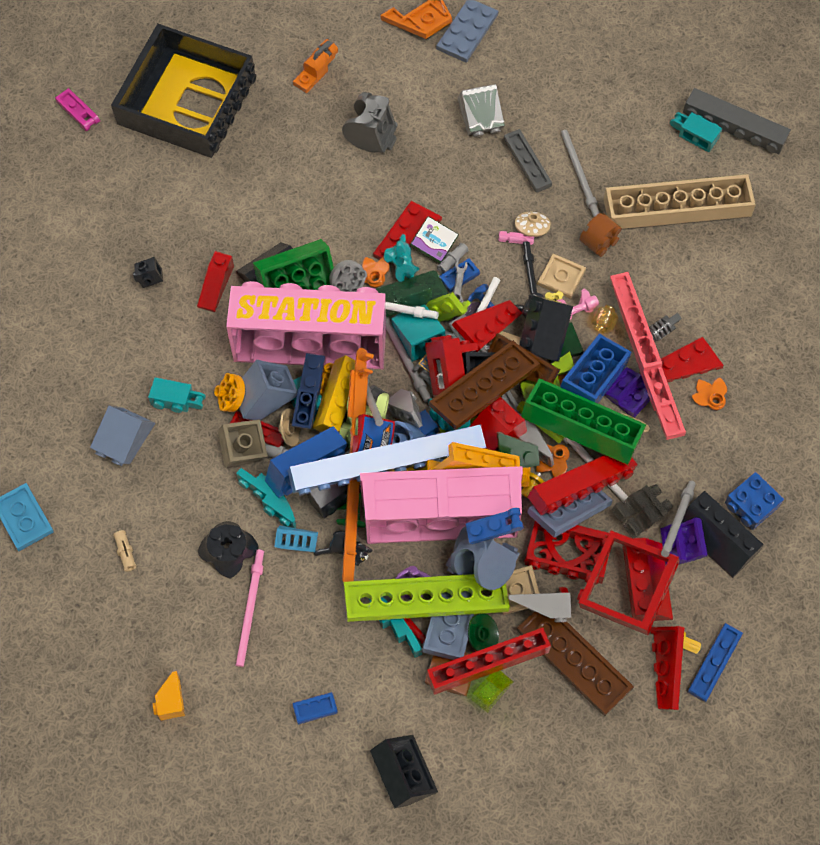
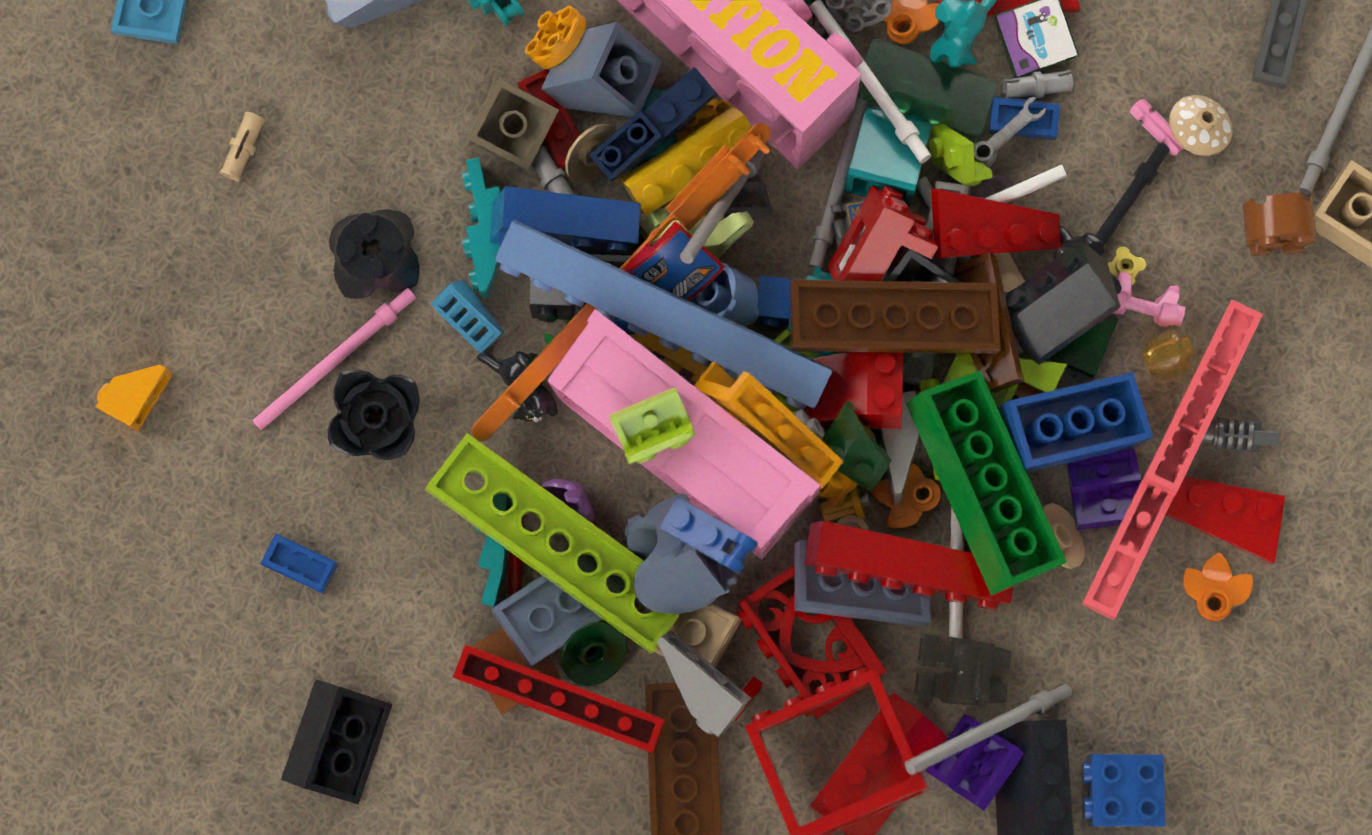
camera: 45 degrees right, 15 degrees up
(294, 599) = (359, 394): none -> black brick
(404, 407) = (770, 255): light grey slope -> none
(430, 498) = (653, 426): none -> lime bracket
(478, 294) = (1024, 170): blue plant -> none
(491, 690) = (540, 736): clear neon green slope -> none
(561, 276) = (1170, 238): tan tile -> none

